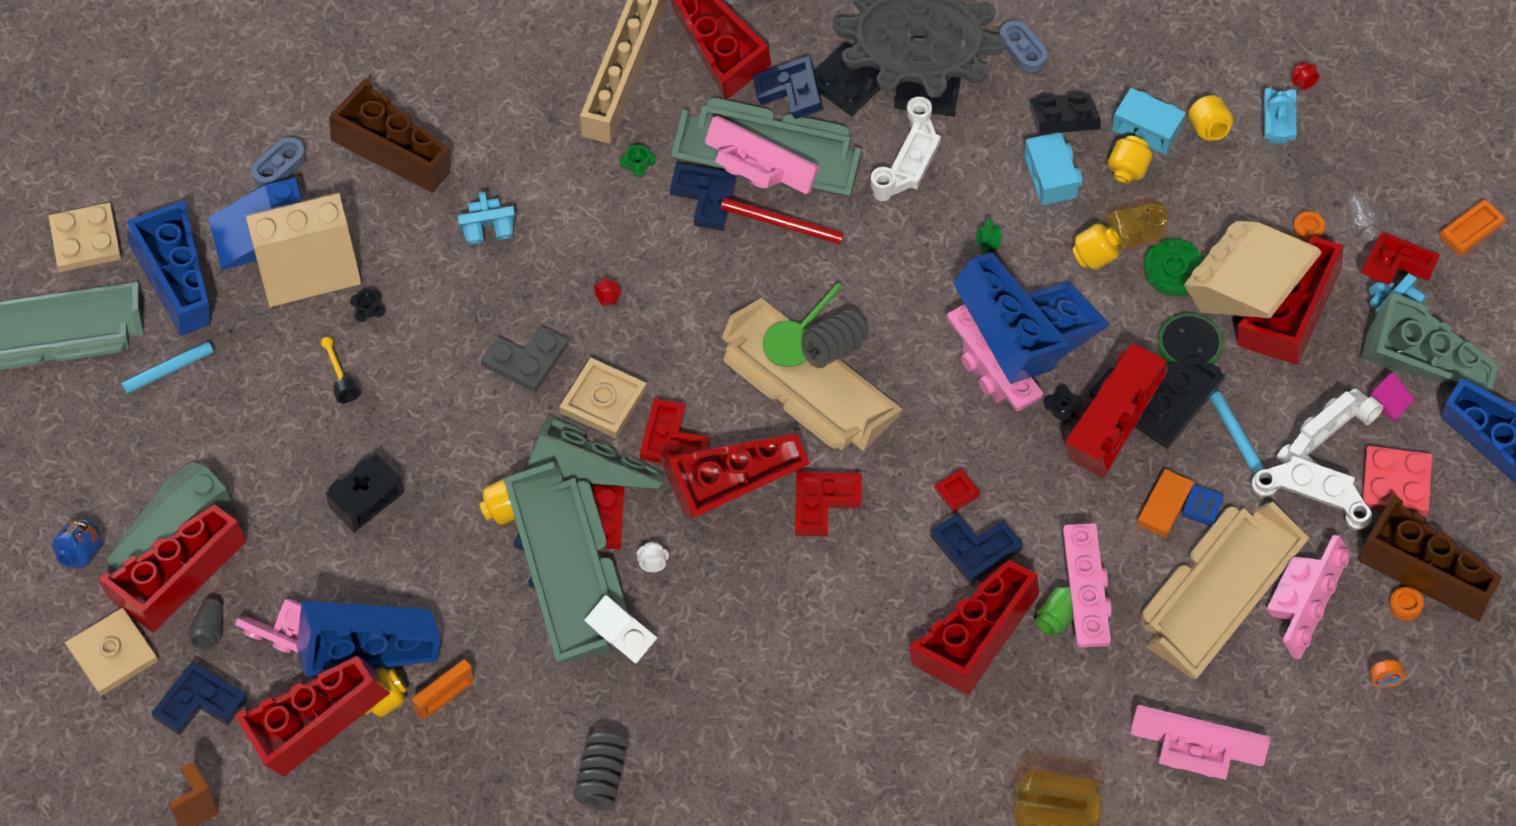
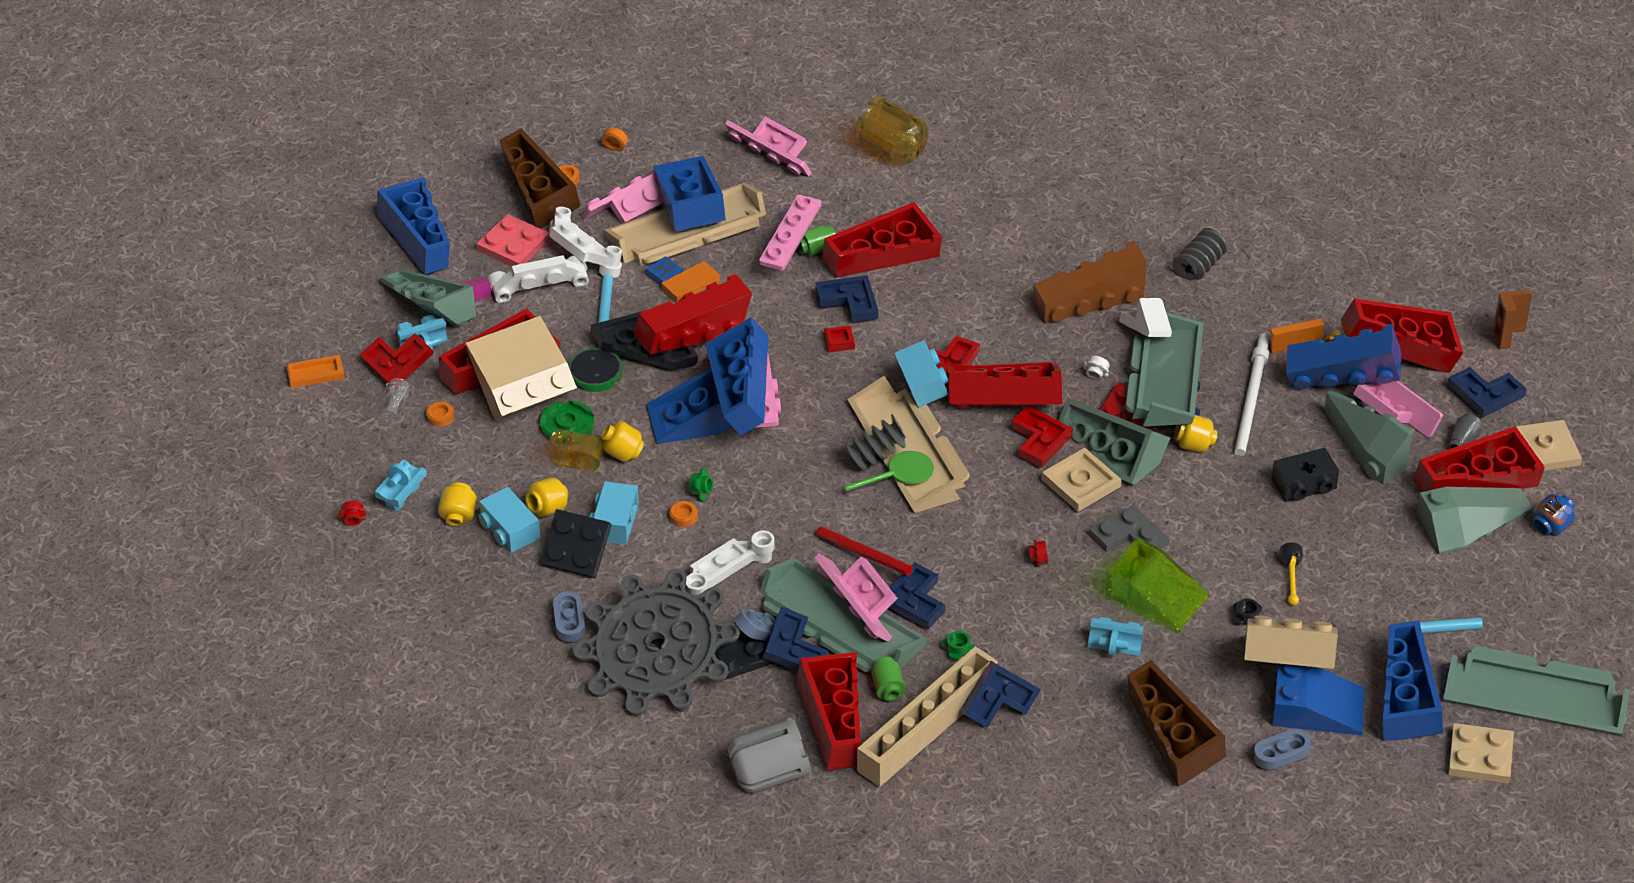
camera: 155 degrees left, 15 degrees down
(298, 556) = (1375, 440): none -> sand green wedge
(470, 287) = (1154, 585): none -> clear neon green slope
(475, 649) = (1259, 359): none -> white bar
(572, 99) = (993, 689): none -> dark blue plate
(684, 91) = (888, 679): none -> bright green brick
(705, 659) = (1093, 286): none -> dark orange wedge
(832, 442) = (921, 373): none -> medium azure brick
(836, 88) = (755, 624): none -> sand blue plate
(988, 205) = (683, 514): none -> orange tile
(1239, 602) = (690, 193): none -> blue slope

